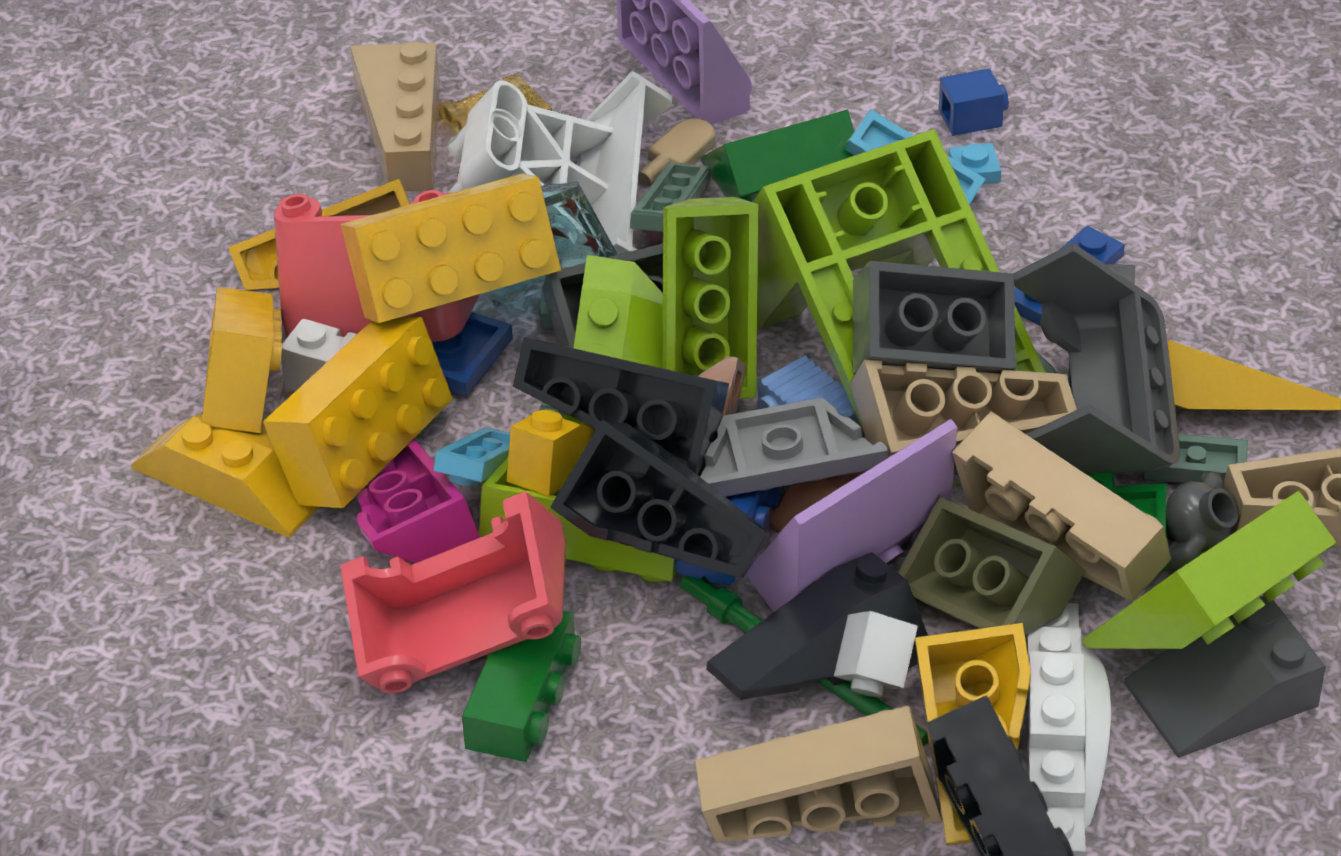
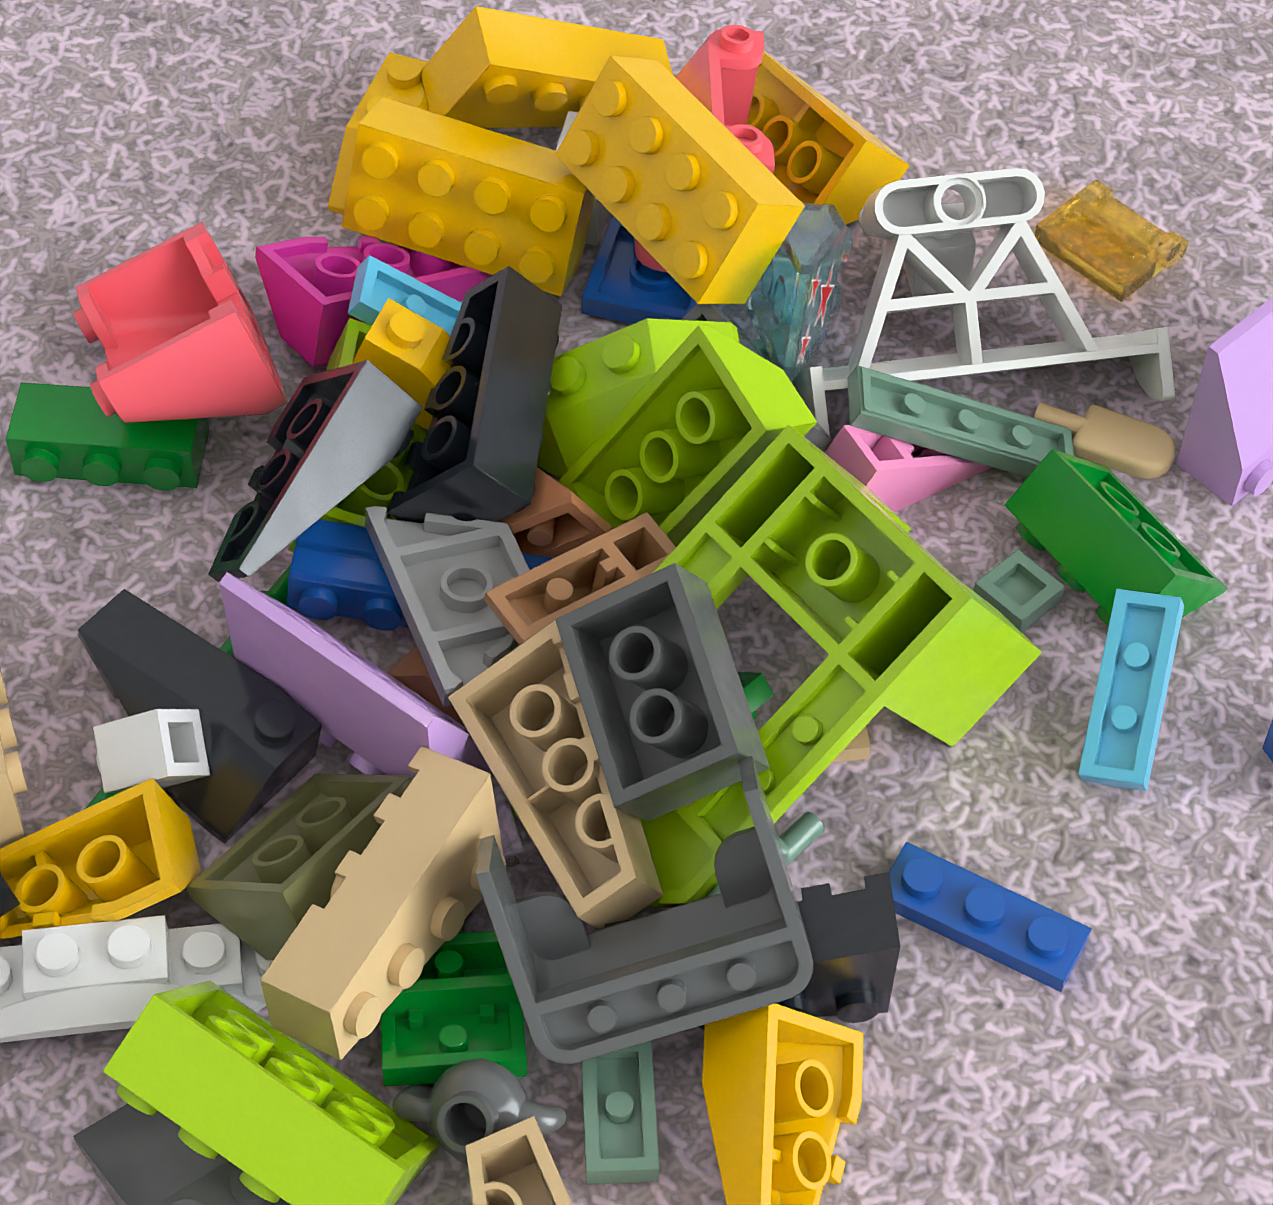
camera: 75 degrees right, 10 degrees up
(401, 107) = (1087, 132): tan wedge -> none
(805, 361) = (579, 576): none -> medium nougat slope
(980, 159) = (1195, 778): medium azure plate -> none

